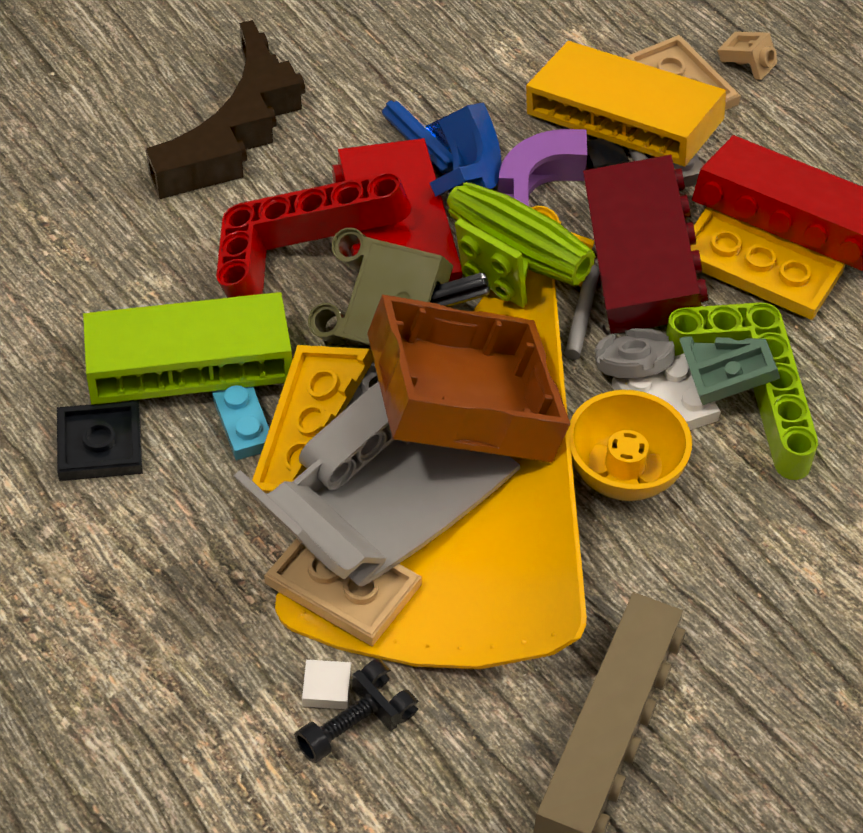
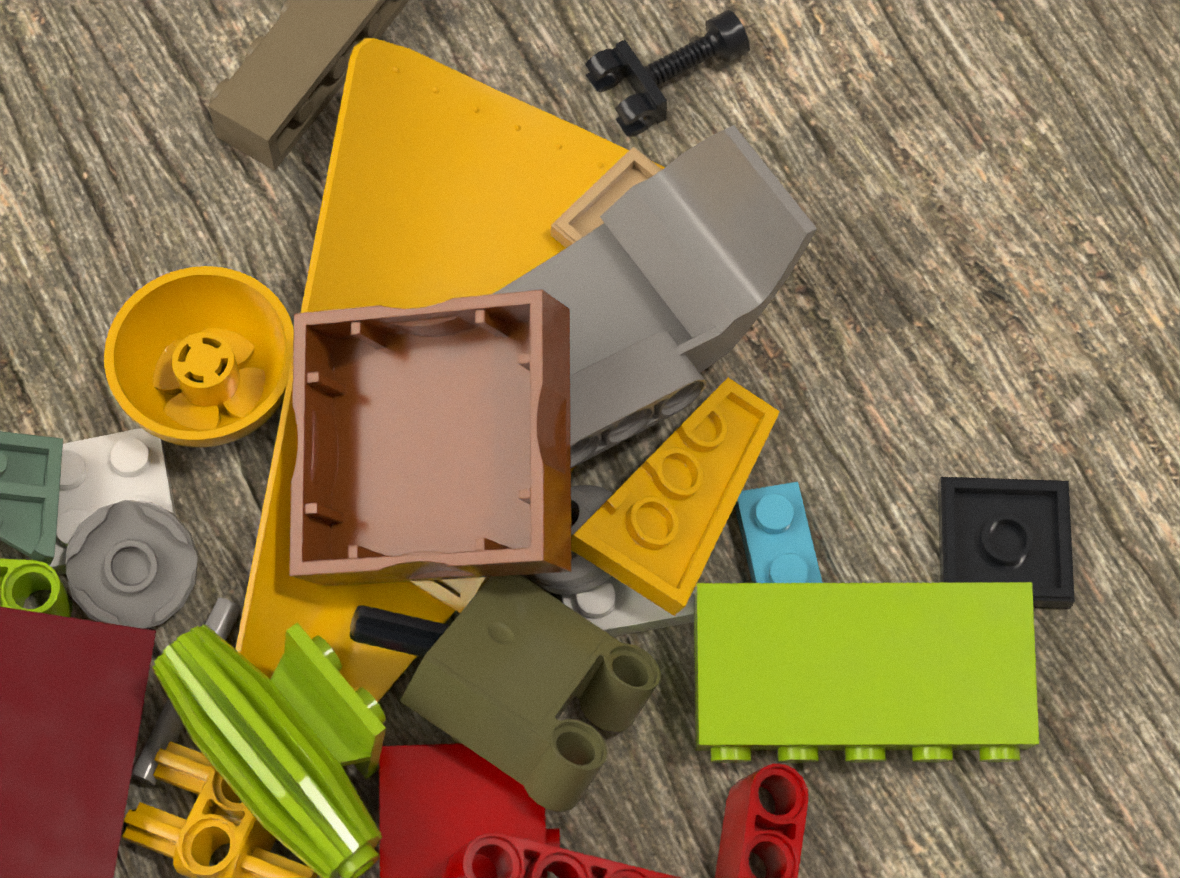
camera: 170 degrees left, 15 degrees up
(326, 684) = (698, 114): white tile -> none

